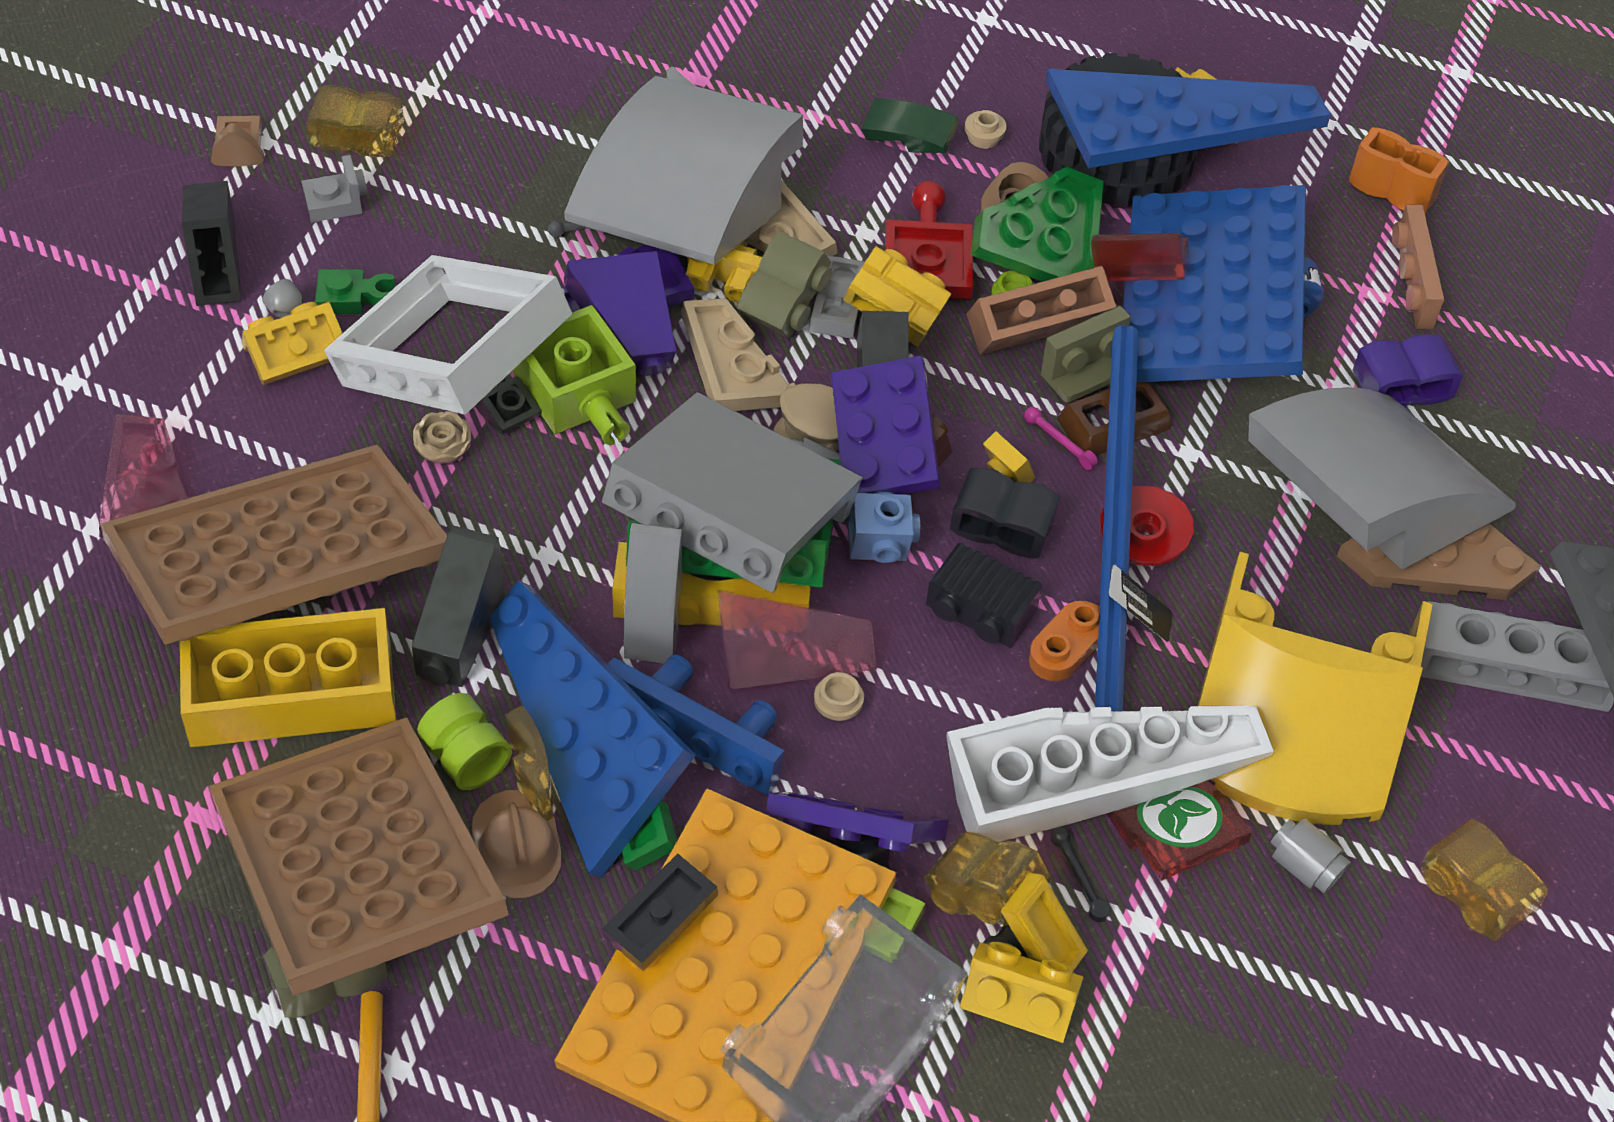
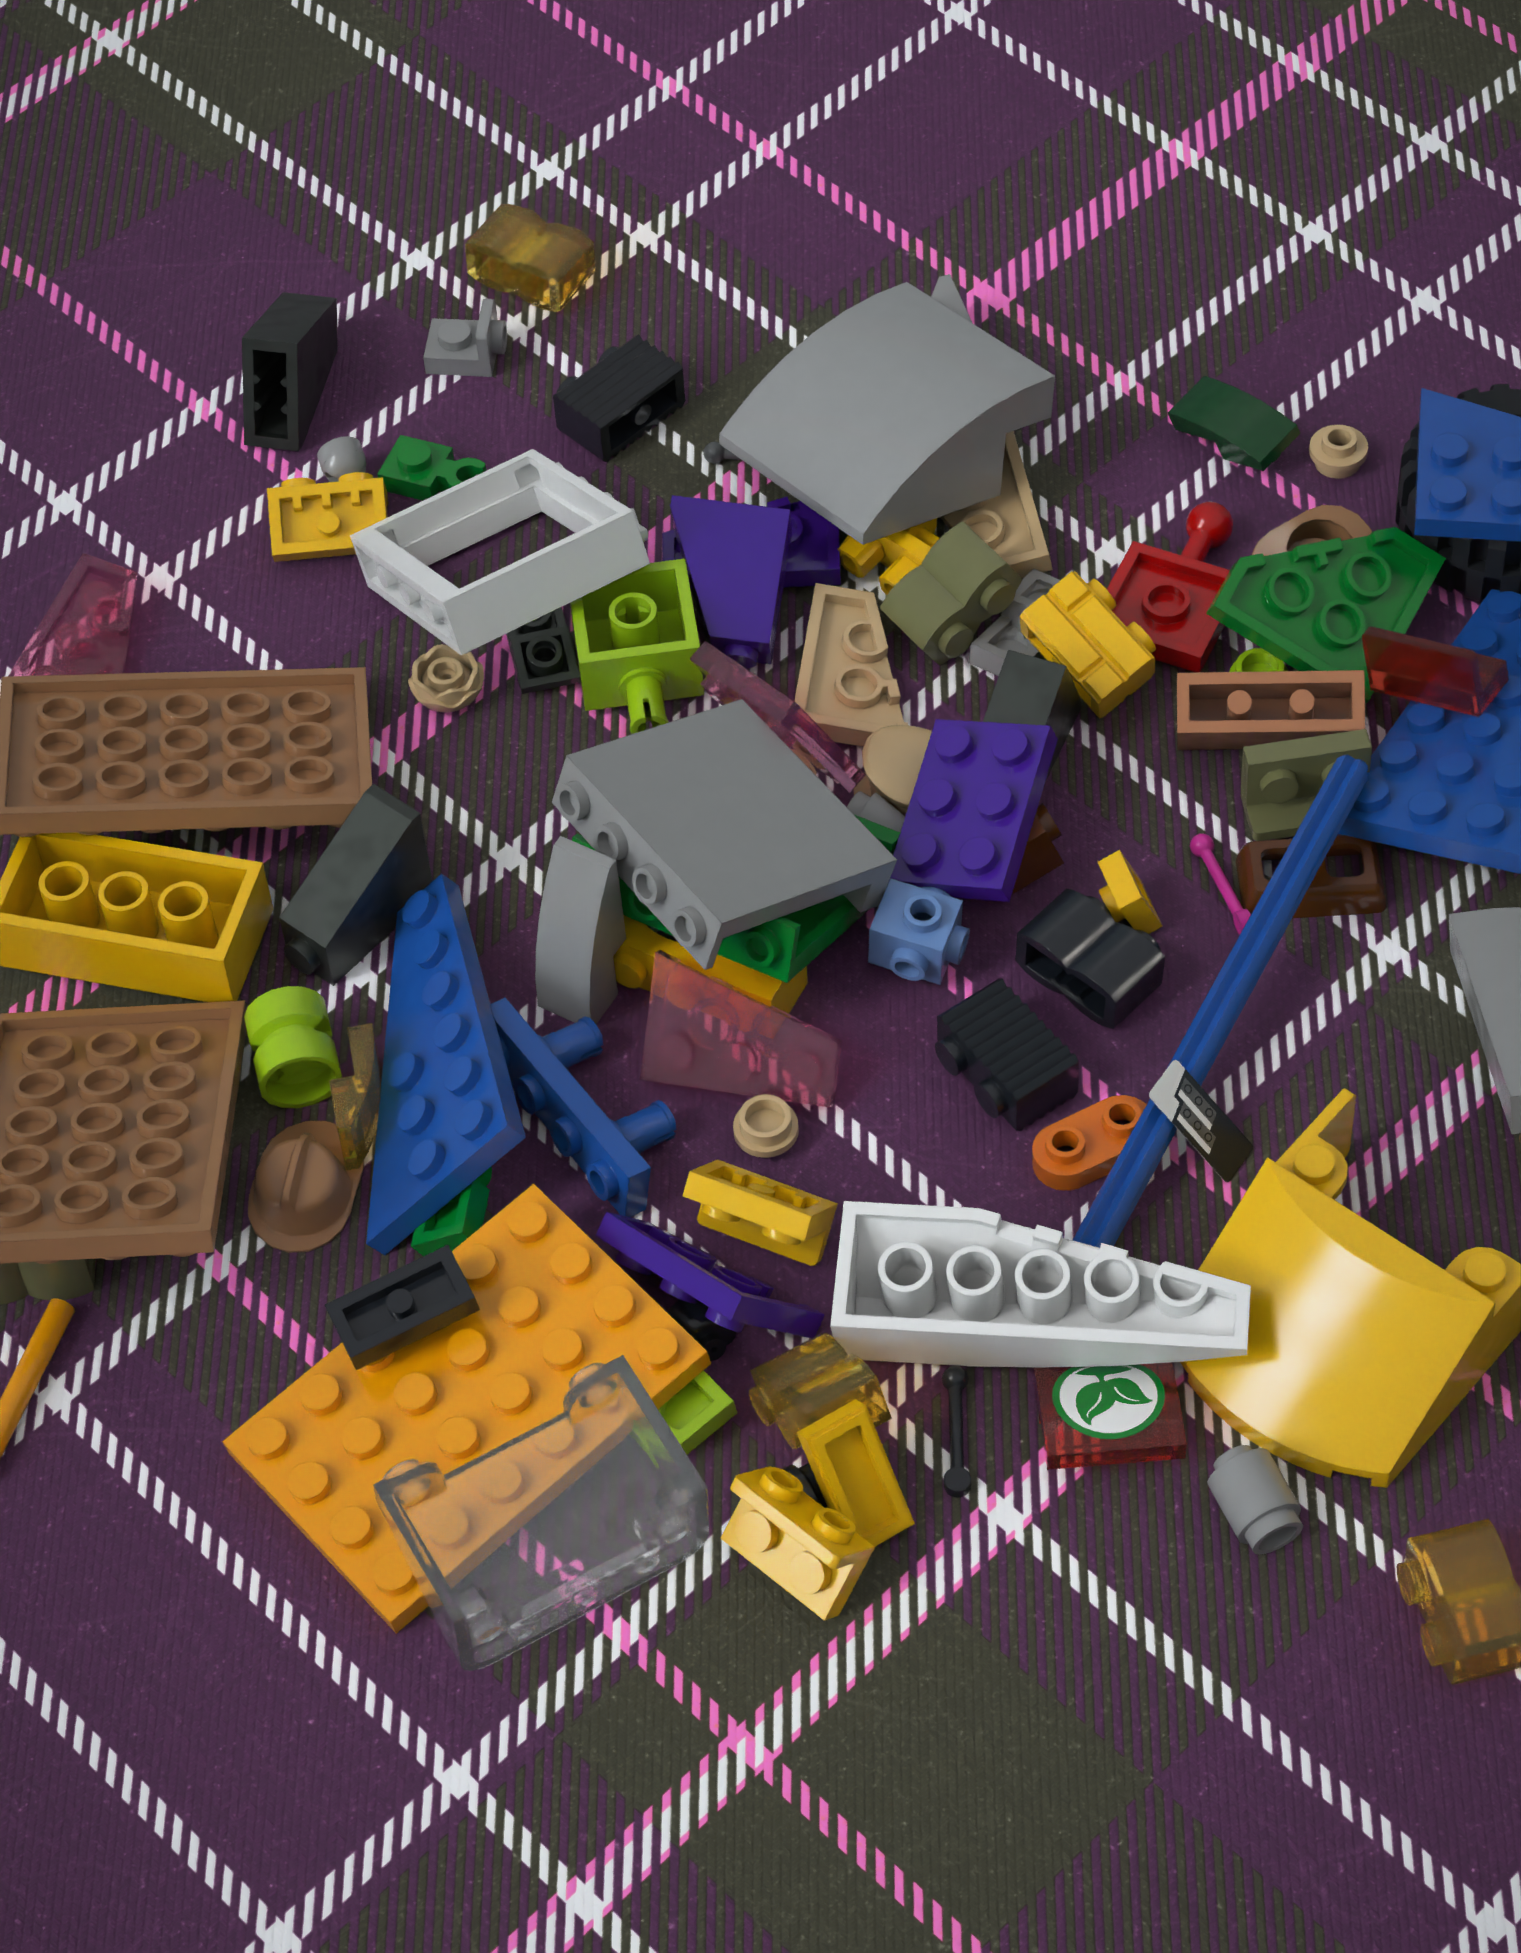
camera: 30 degrees right, 0 degrees up
(238, 141) = (384, 251): medium nougat tile -> none
(471, 205) = (619, 397): none -> black brick
(677, 385) = (730, 682): none -> clear pink wing
(874, 759) = (761, 1211): none -> yellow bracket
(1165, 520) = (1291, 1013): red dish -> none

